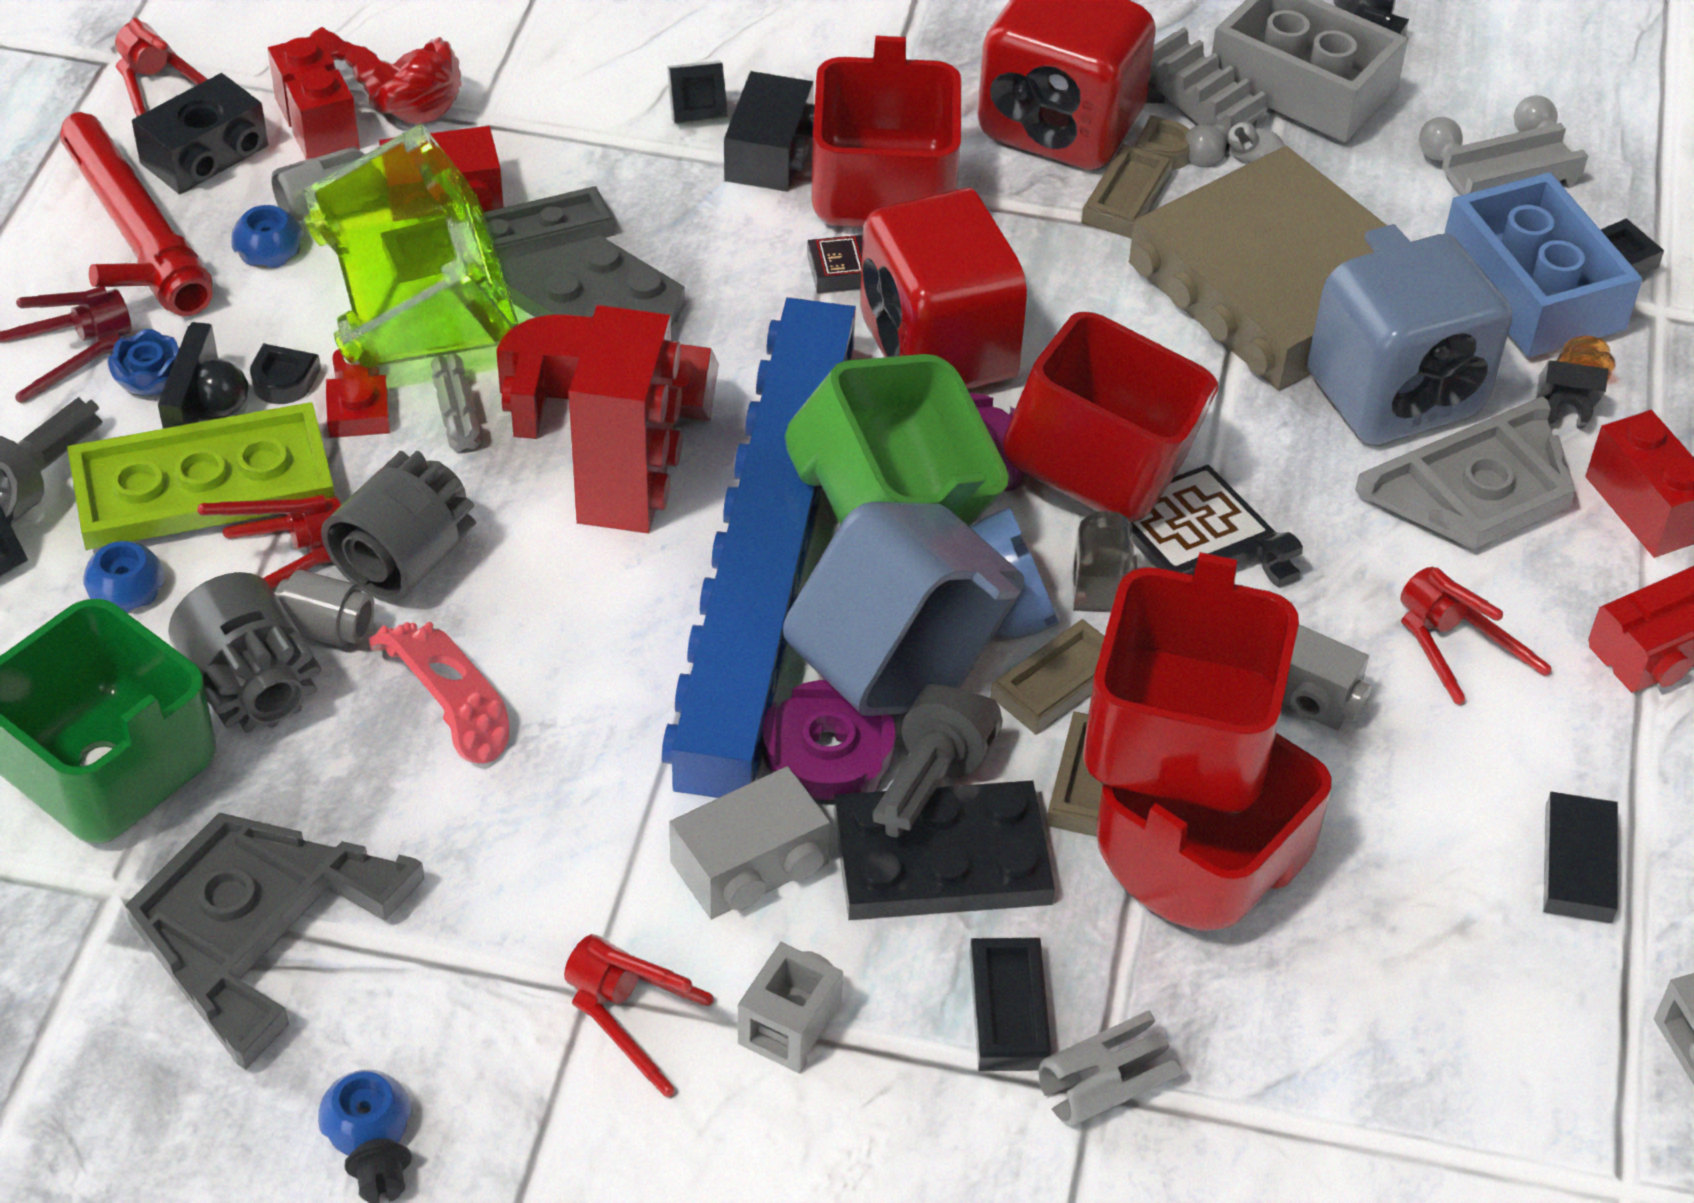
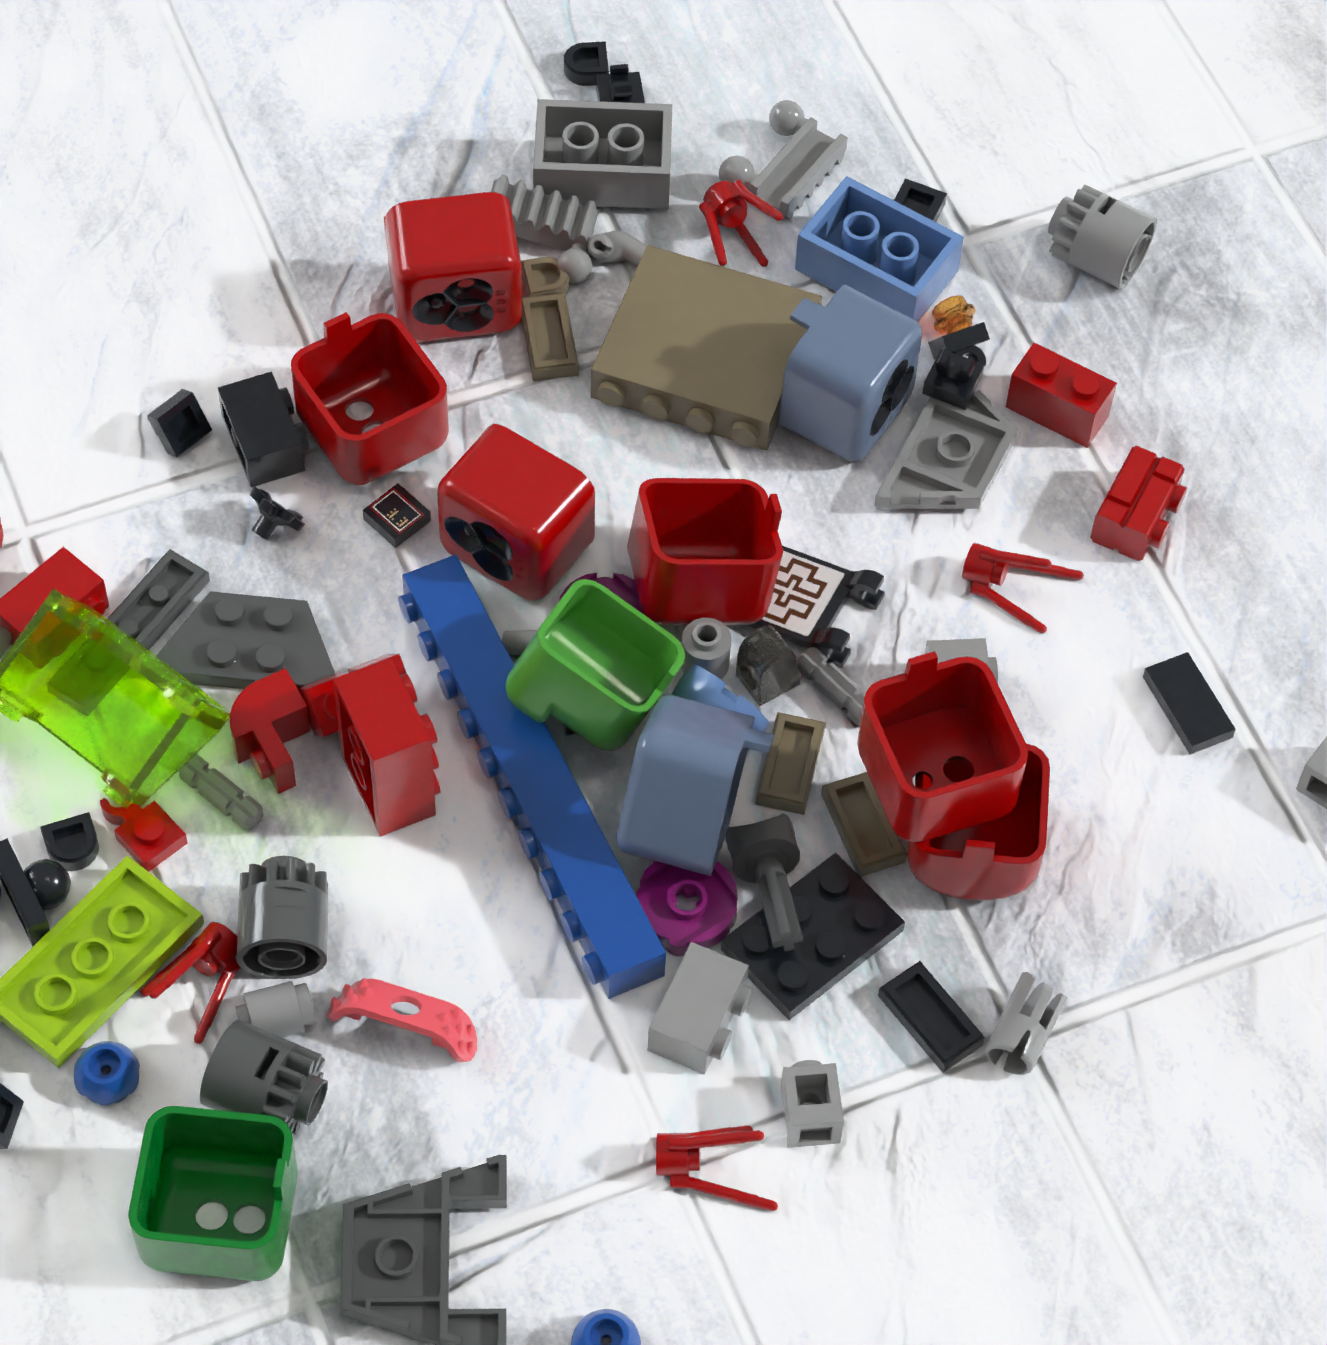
camera: 35 degrees left, 10 degrees up
(717, 202) = (273, 514): none -> black plant
(1047, 517) = (707, 645): none -> light grey brick
(1405, 161) = (727, 206): none -> red plant
(1533, 406) = (953, 378): none -> black tile

